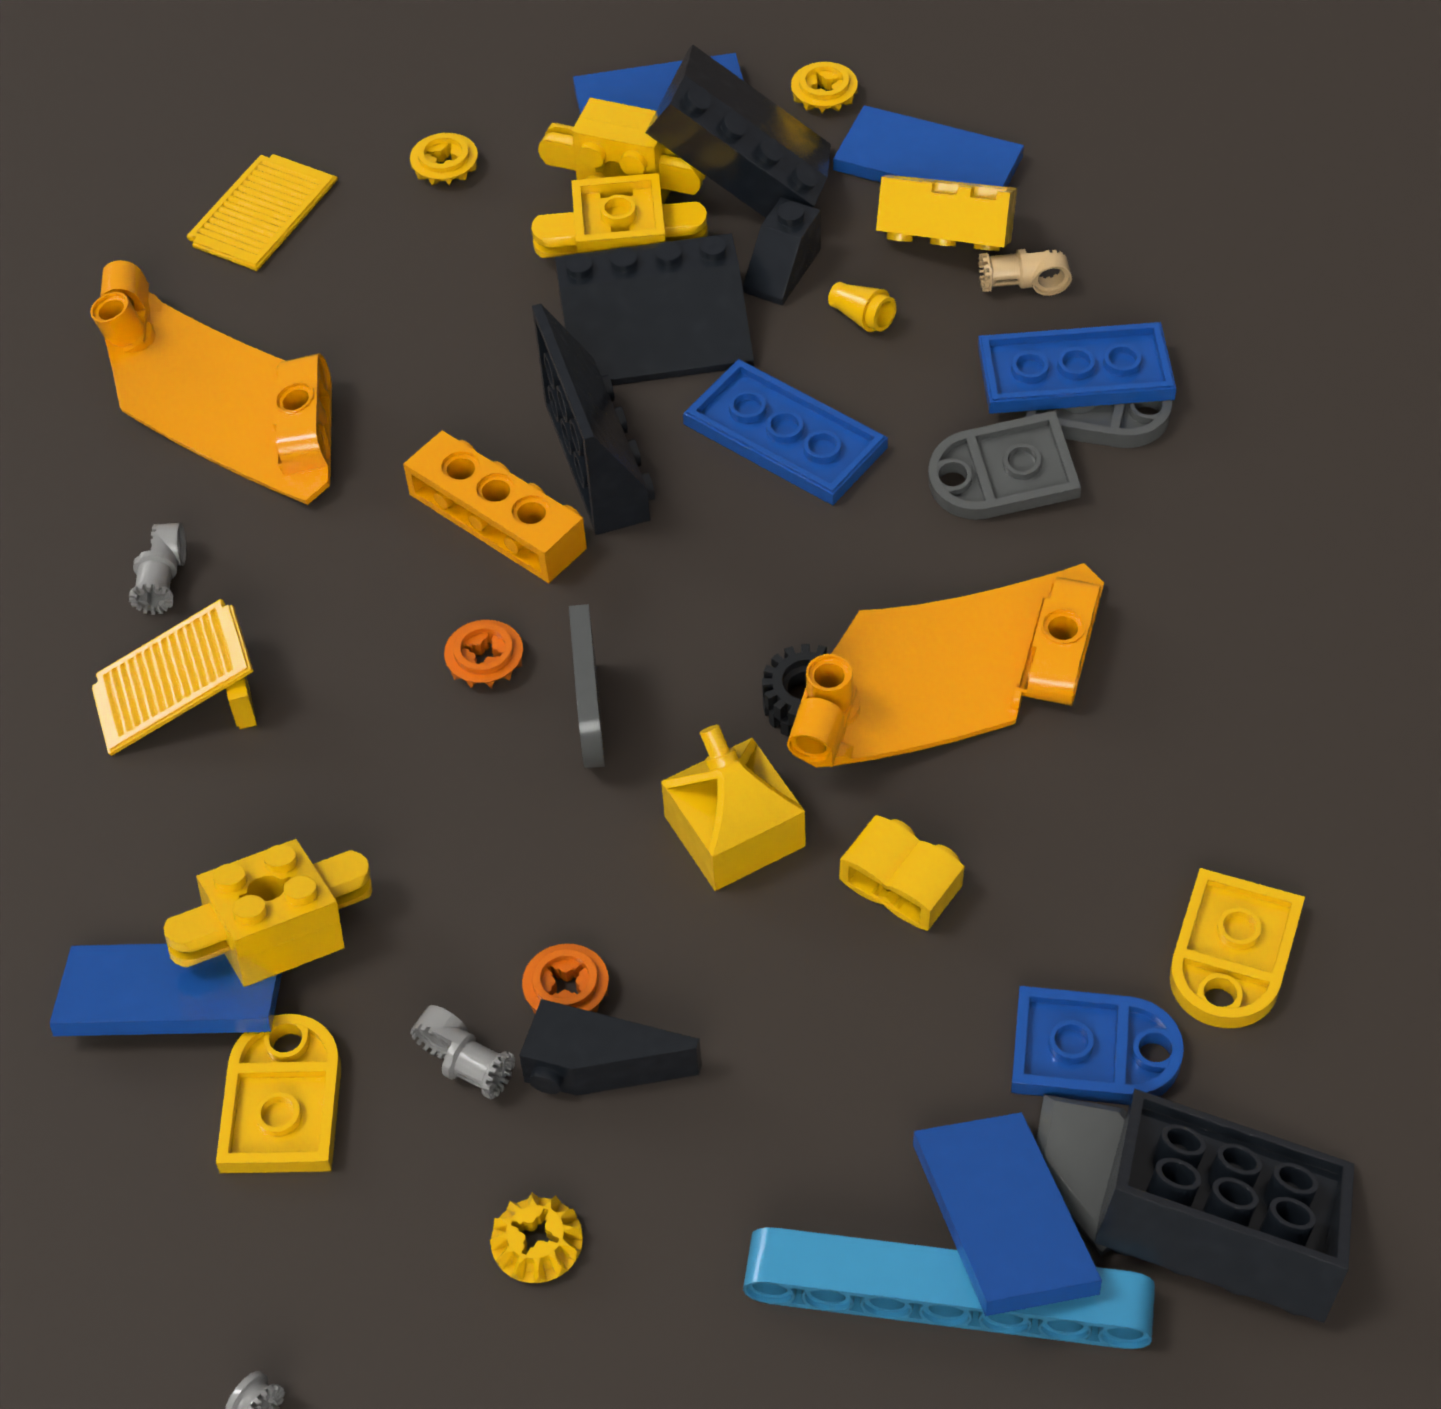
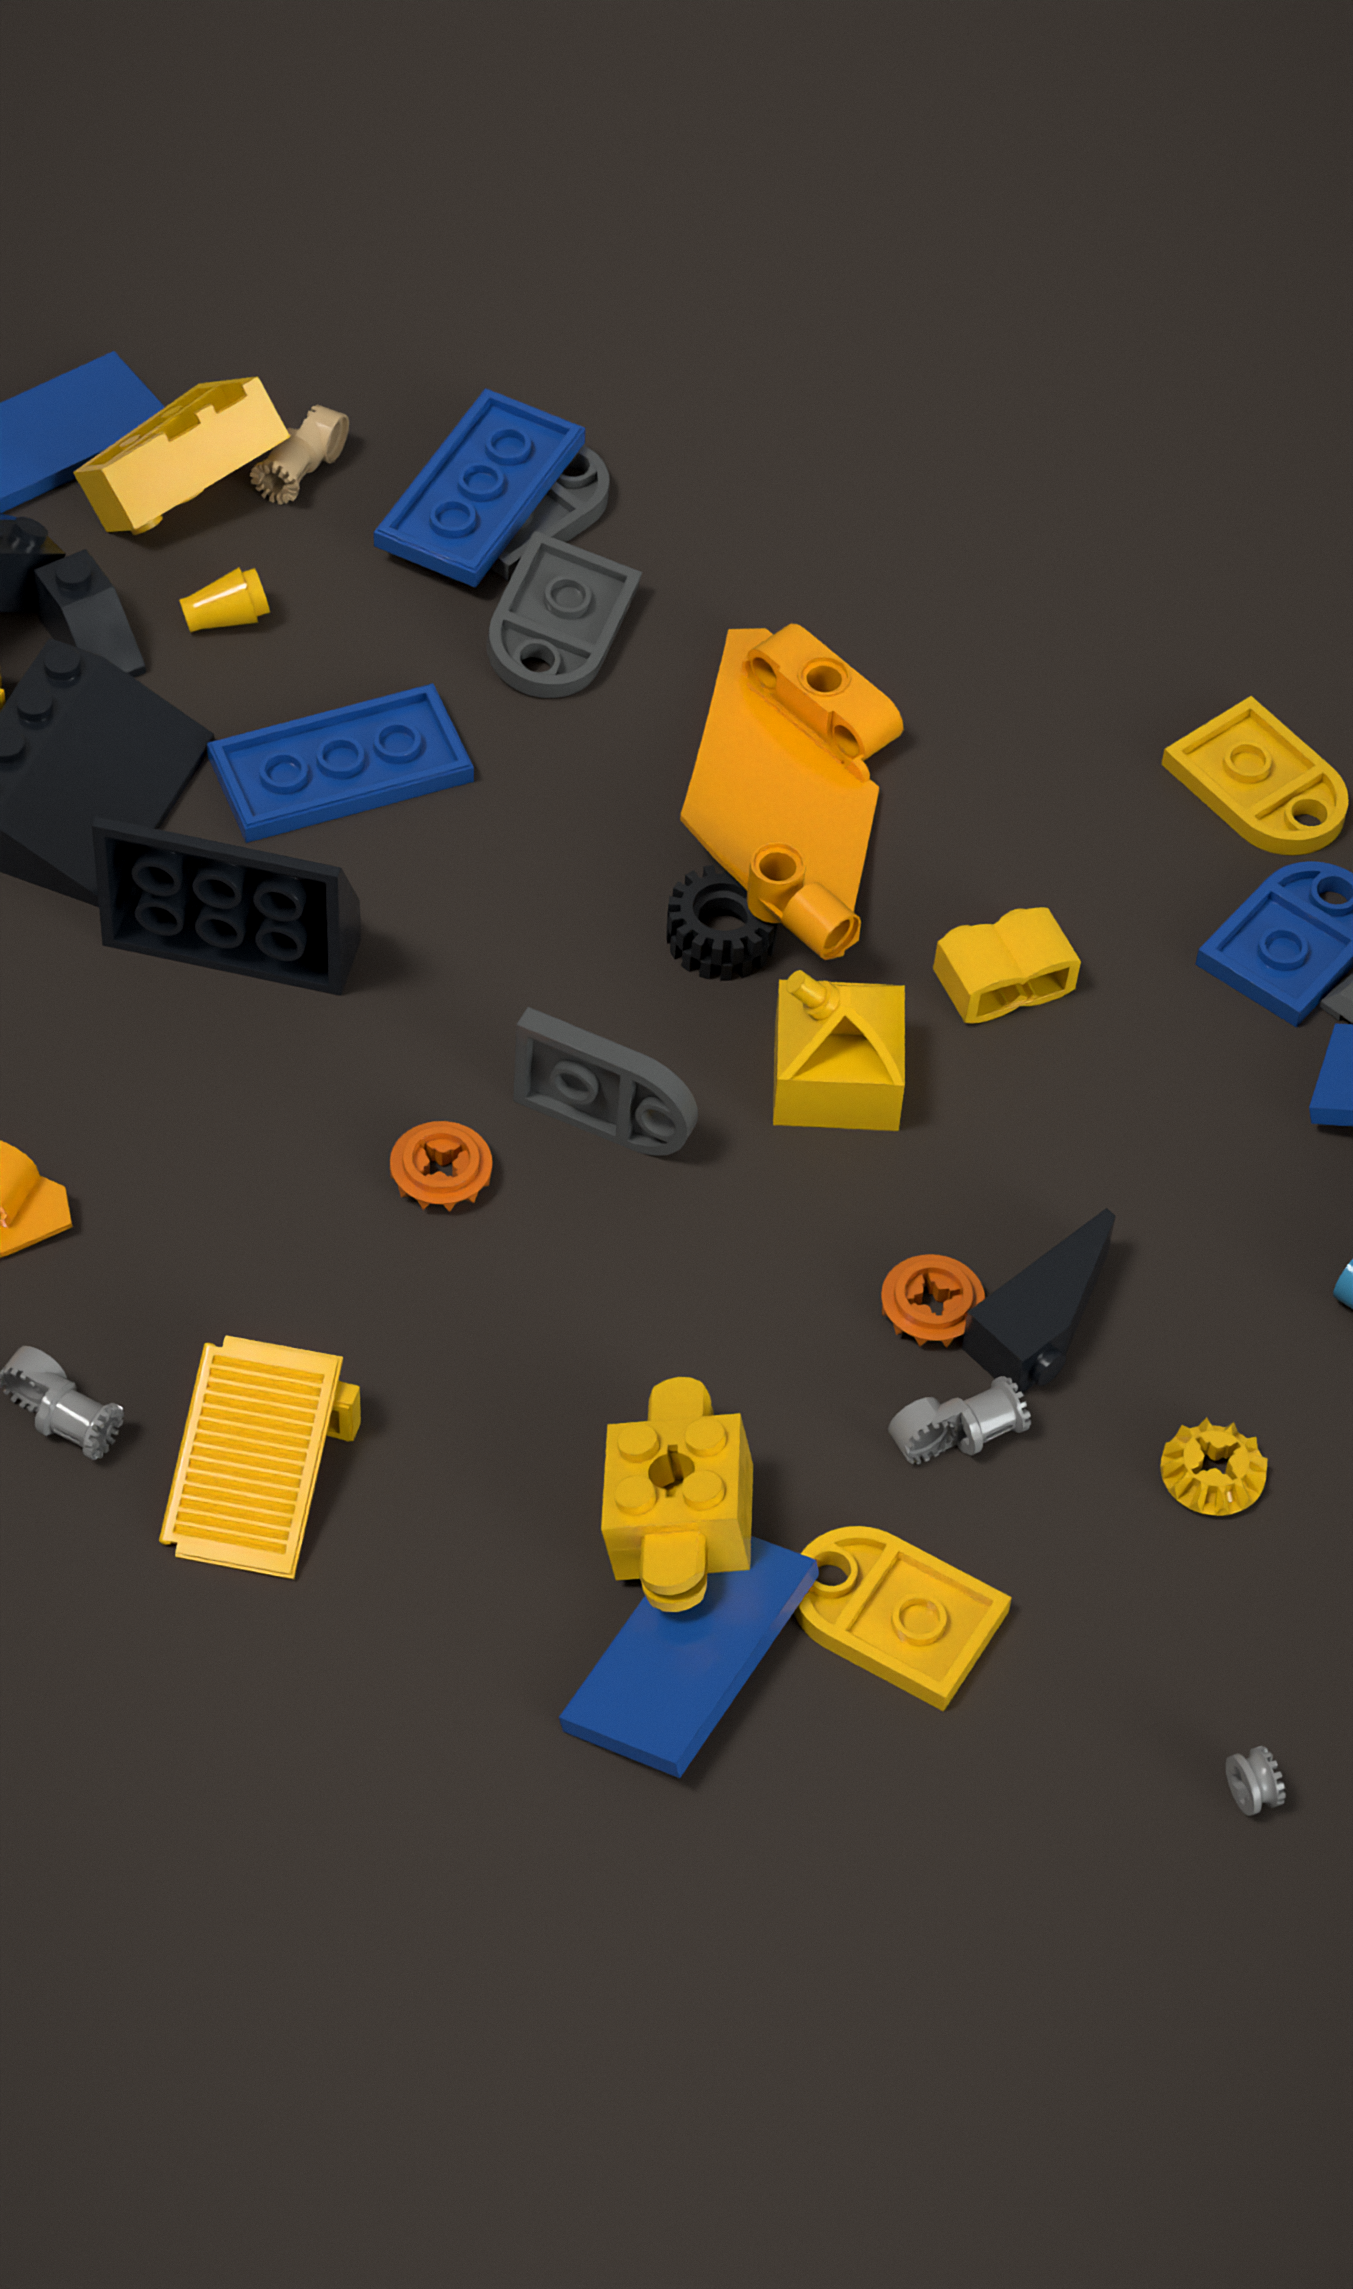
camera: 65 degrees left, 0 degrees up
(496, 506) = (242, 1051): light orange brick -> none

